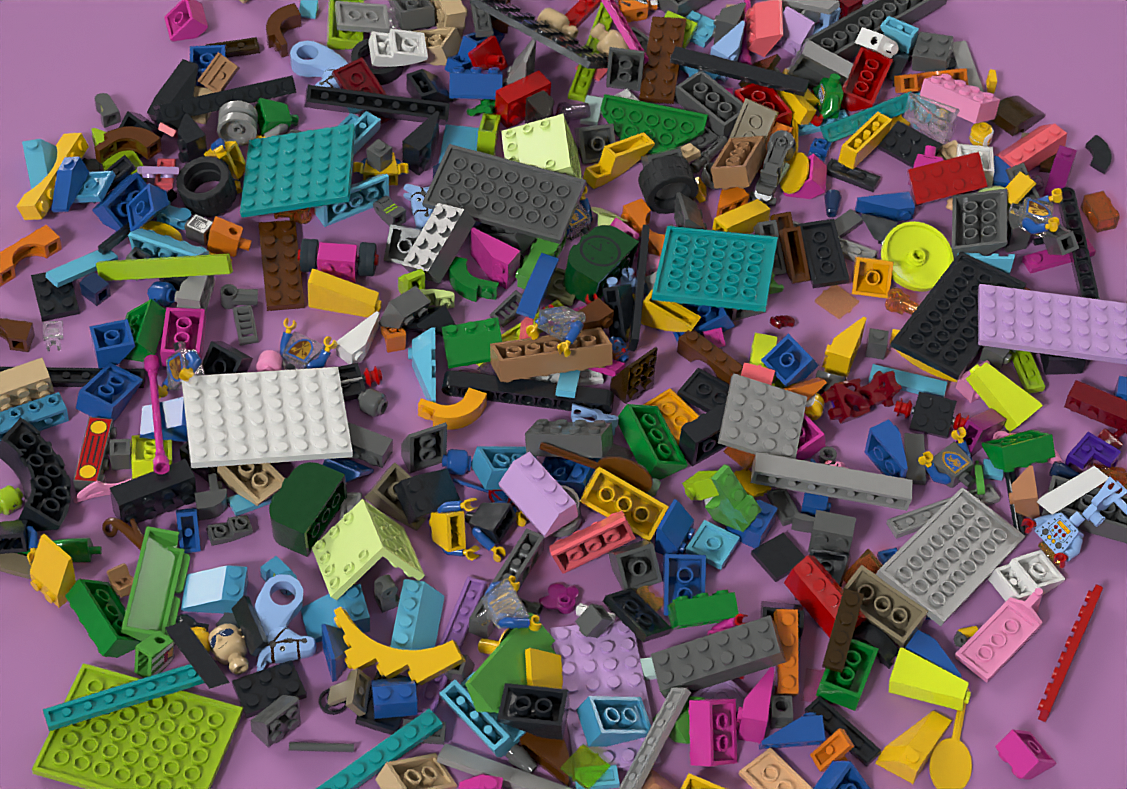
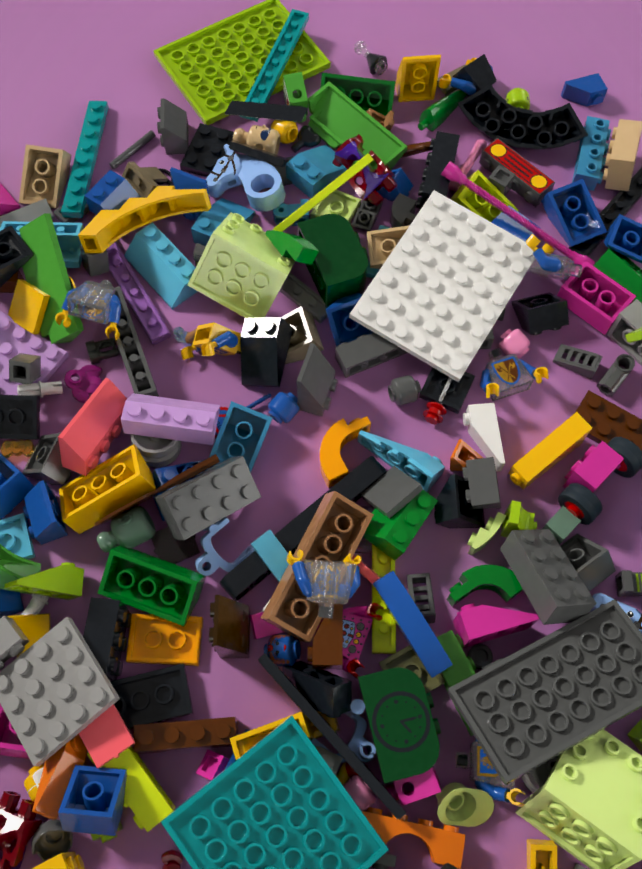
camera: 135 degrees right, 15 degrees up
(49, 632) = (376, 62): none -> clear piece
(202, 523) = (372, 178): none -> dark red hips
(244, 552) = (338, 203): none -> yellowish green tile
(259, 537) = (324, 193): none -> neon yellow tile
(327, 524) = (293, 246): none -> green slope
(389, 266) = (562, 524): none -> sand green brick
(457, 563) = (184, 336): none -> clear light blue arm
(460, 353) = (392, 492): none -> dark grey tile
(492, 523) = (195, 378): black torso -> none

